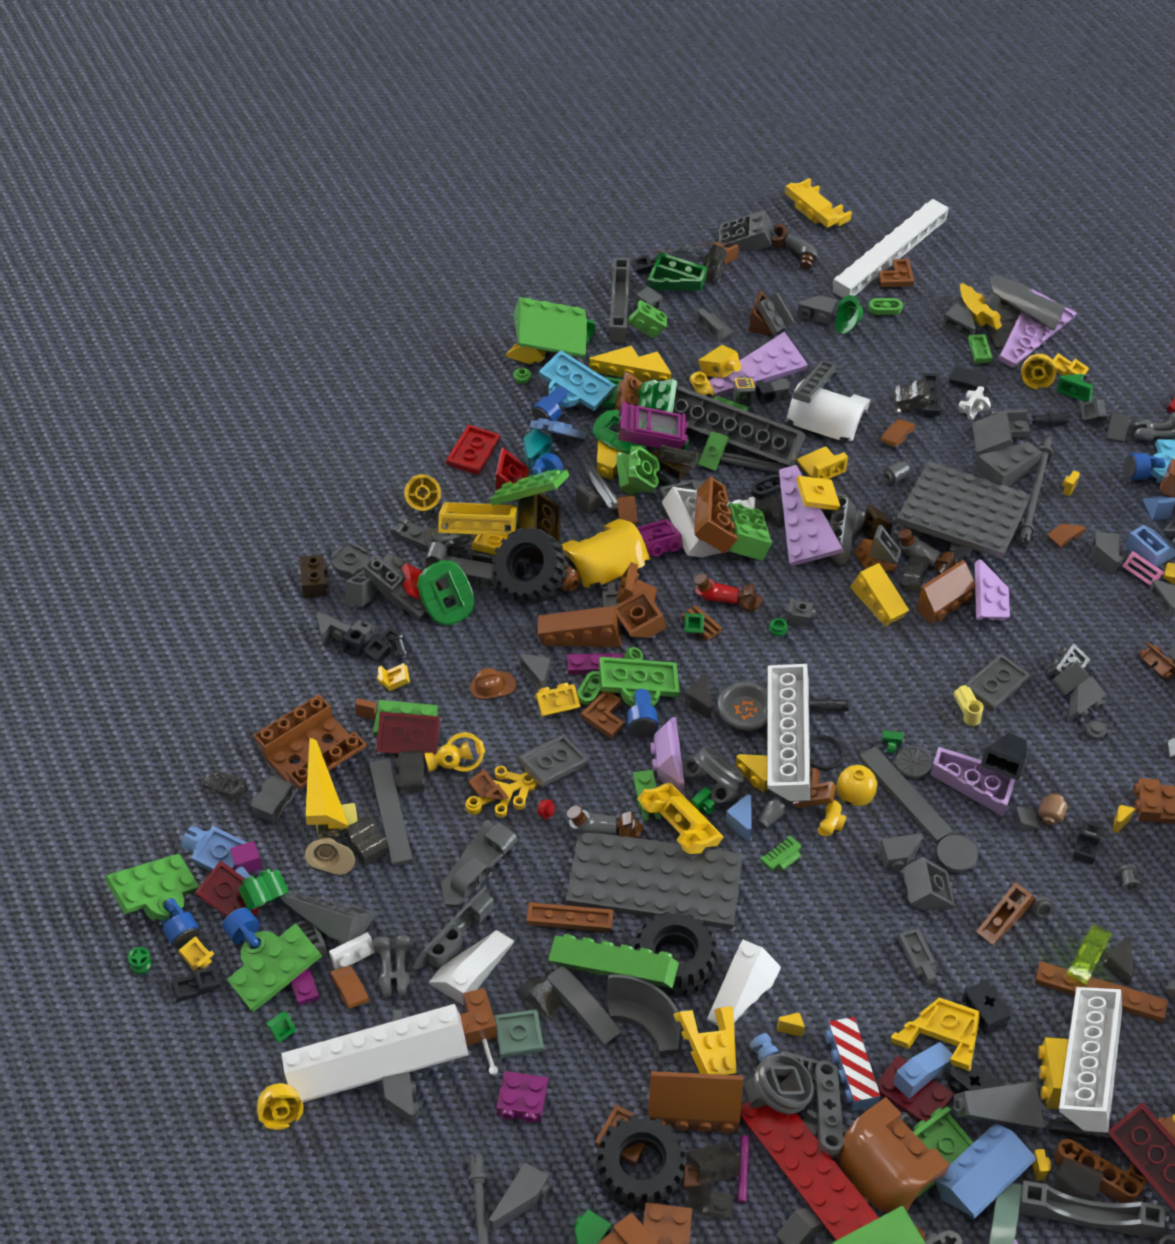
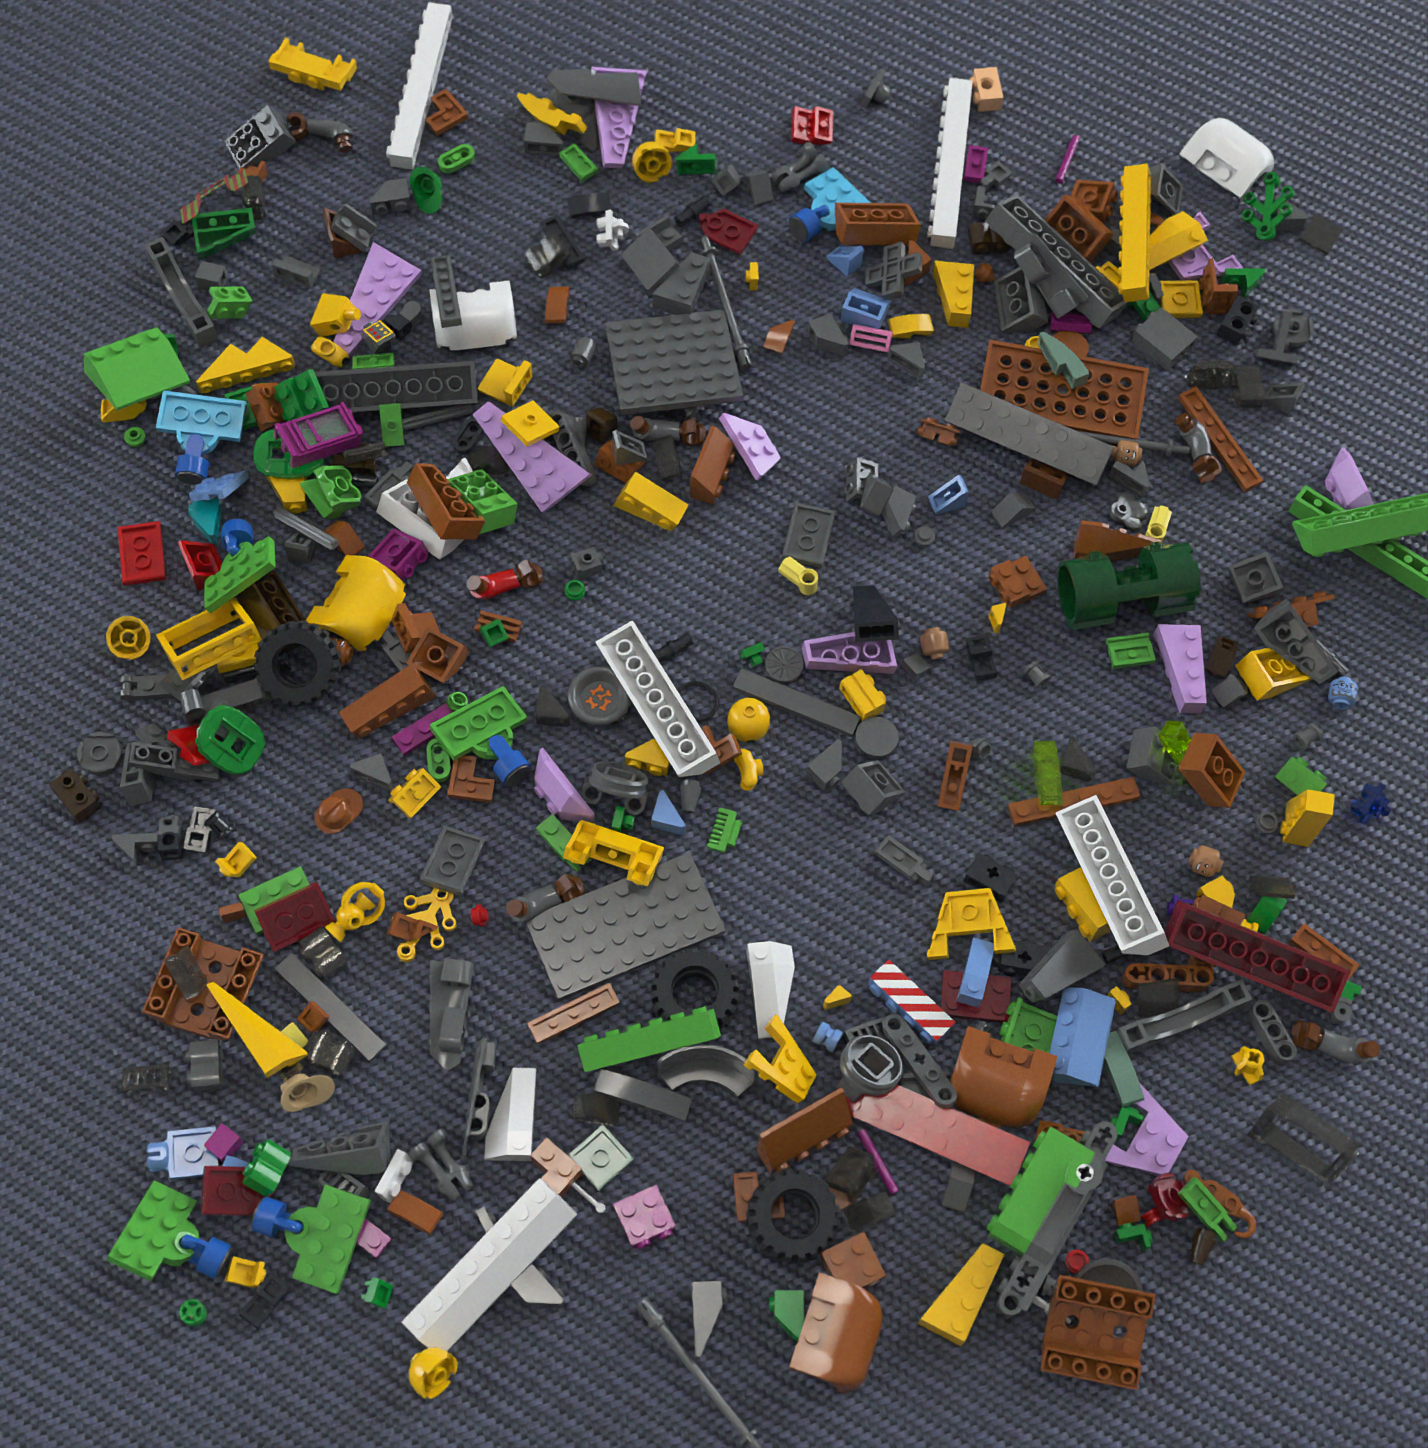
camera: 35 degrees left, 15 degrees up
(302, 725) = (186, 972): none -> clear smoke slope
(373, 809) = (313, 1017): none -> dark orange tile
(964, 815) = (863, 695): none -> yellow brick
(1072, 445) = (728, 230): none -> dark red tile
(1137, 710) = (949, 496): none -> medium blue slope

